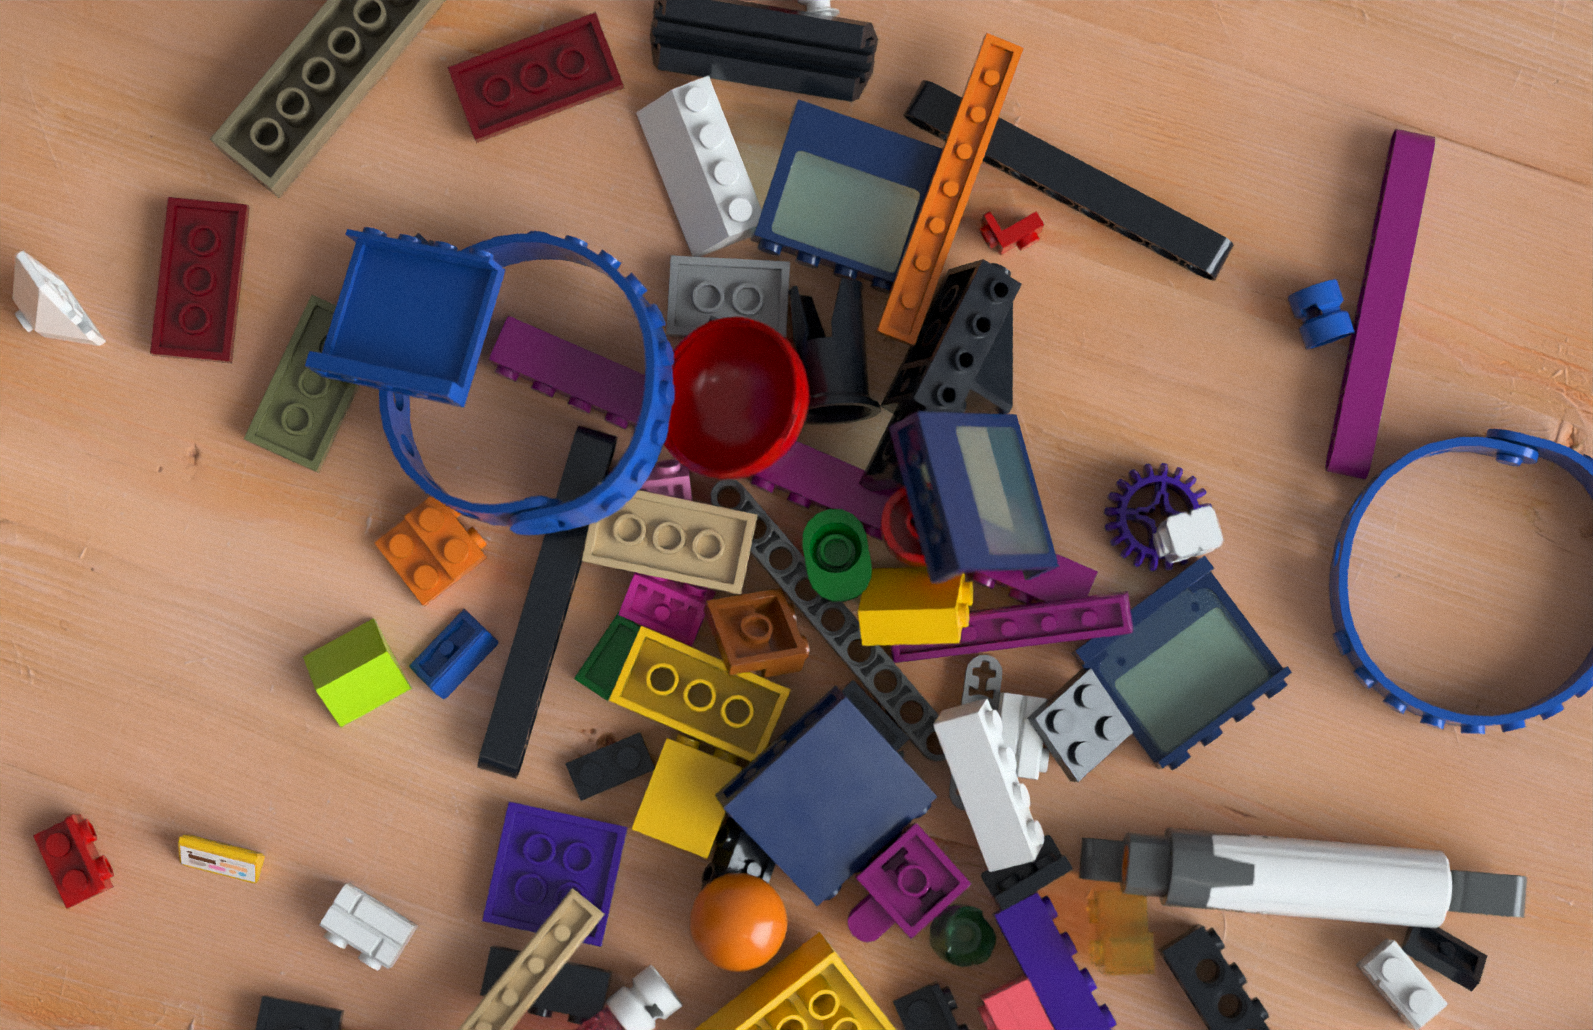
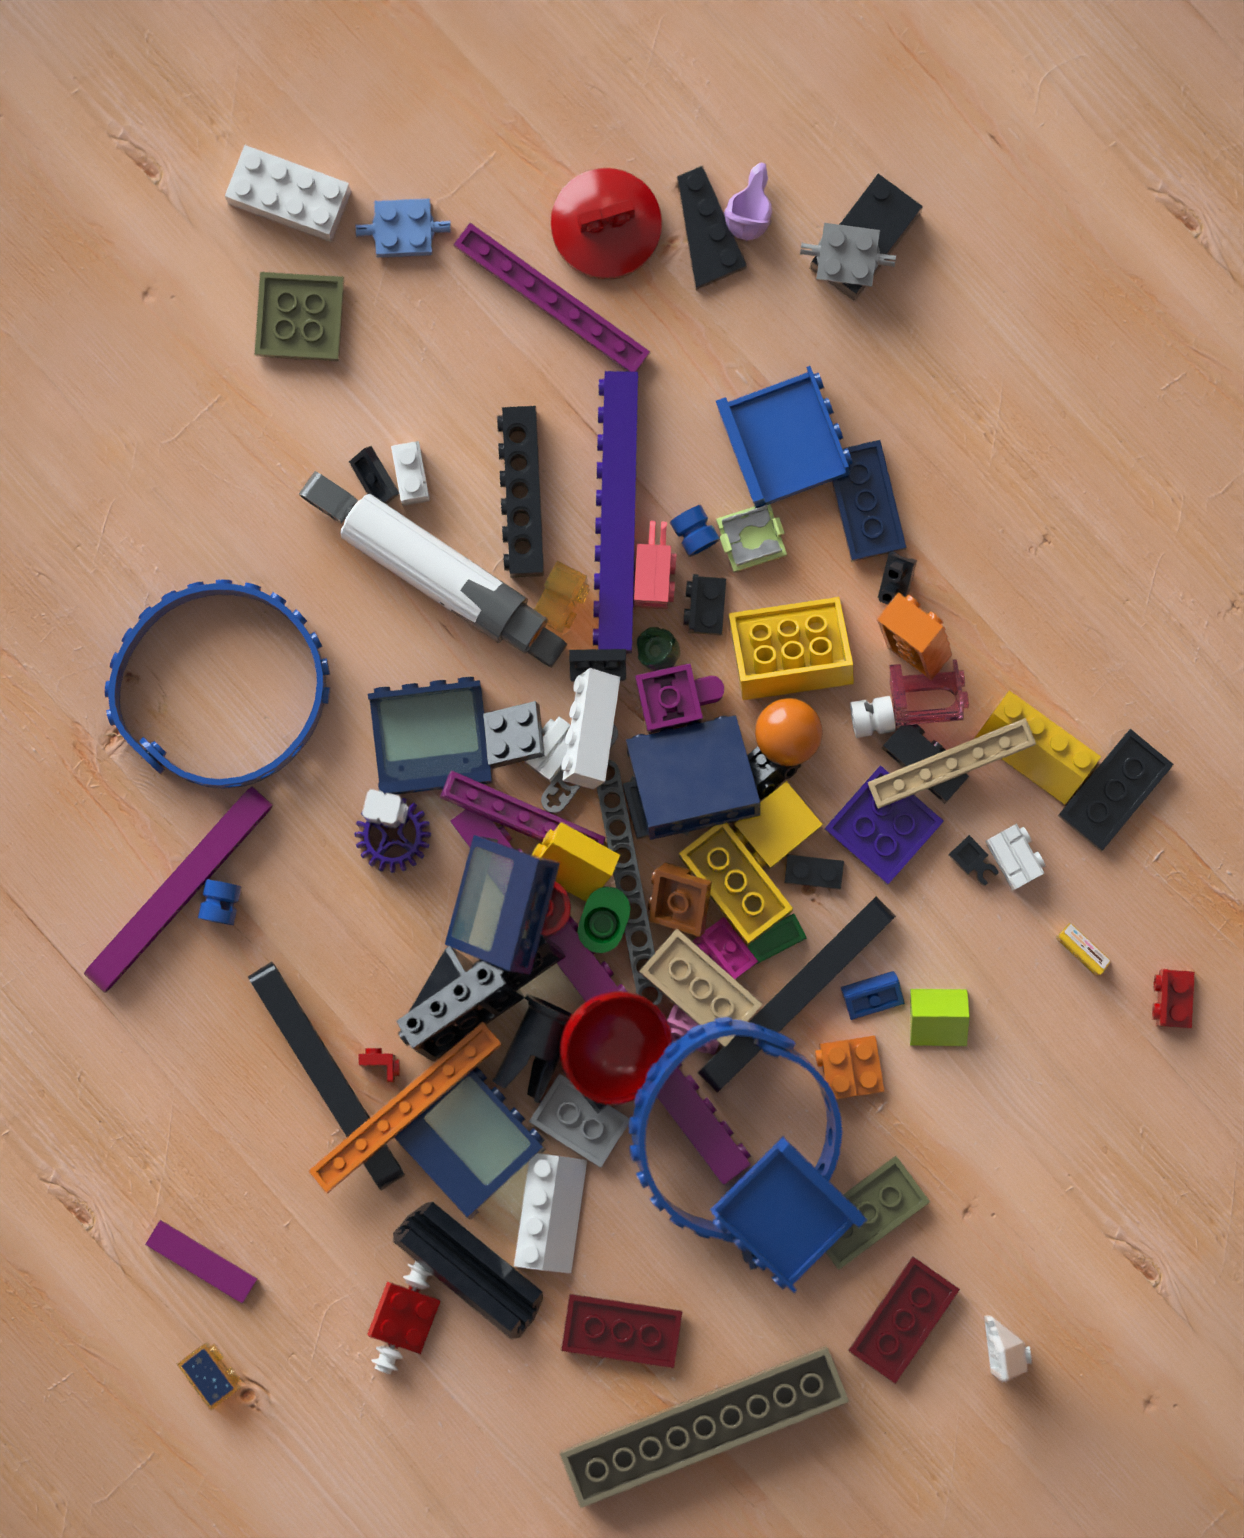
camera: 150 degrees left, 0 degrees up
(424, 895) = (970, 857): none -> black plate

